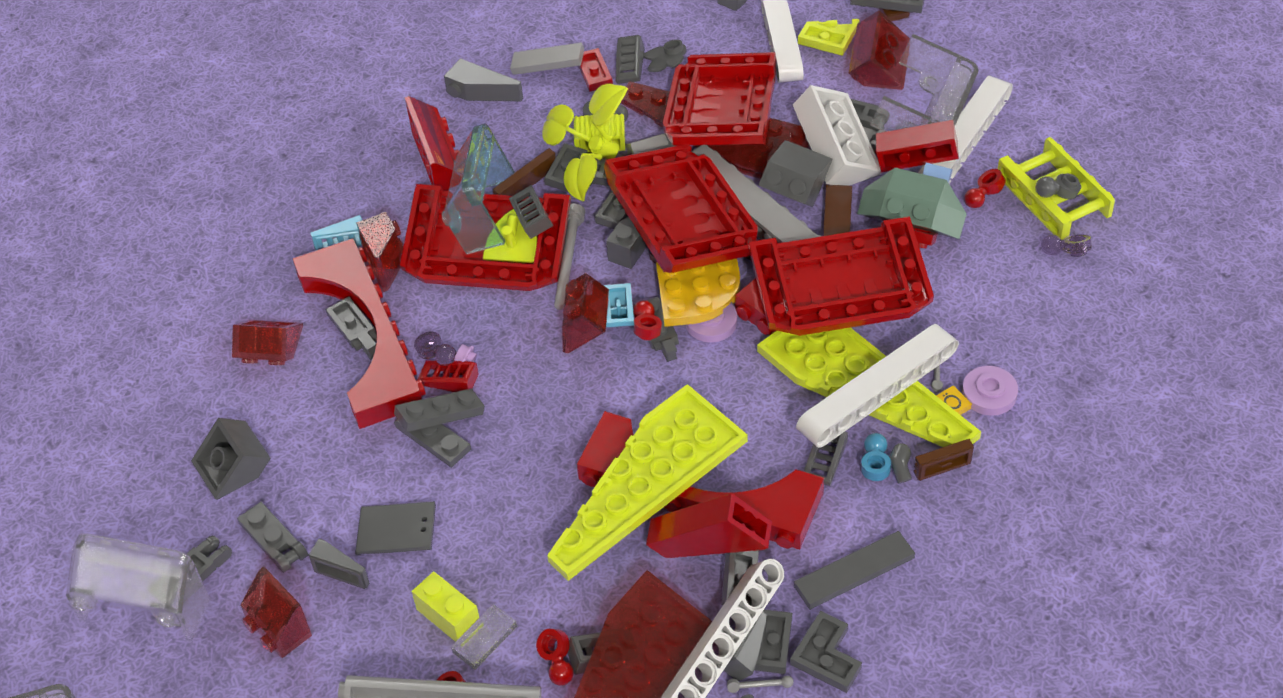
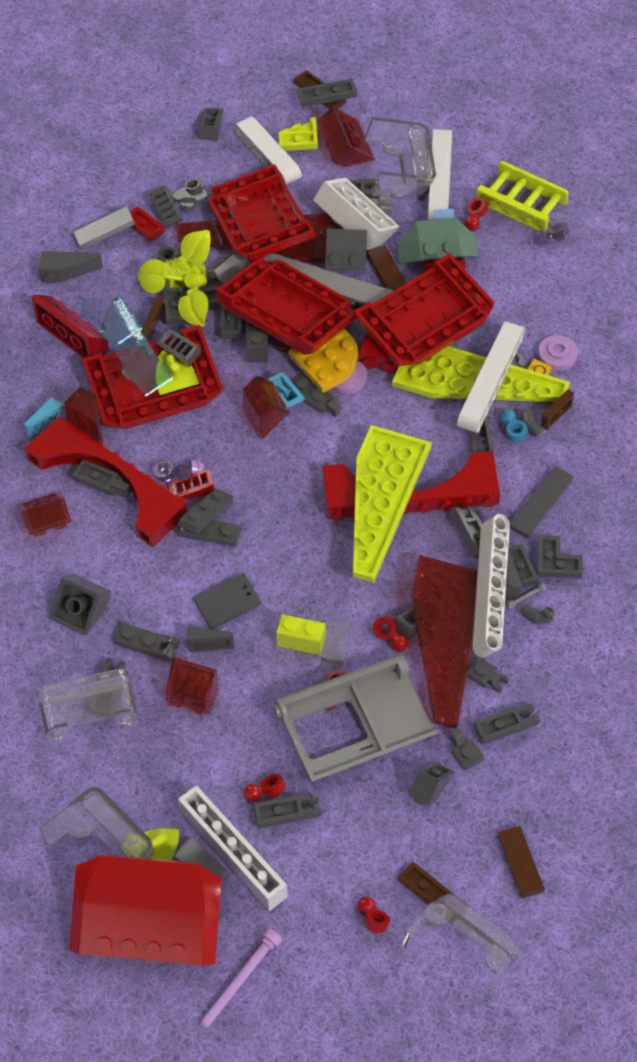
camera: 30 degrees left, 5 degrees up
(575, 218) = (226, 386): light grey piece -> none
(646, 324) = (312, 396): red plate -> none
(709, 529) = (443, 513): red slope -> none
(917, 146) = (418, 200): red brick -> none
(1064, 185) = (531, 192): dark grey plate -> none

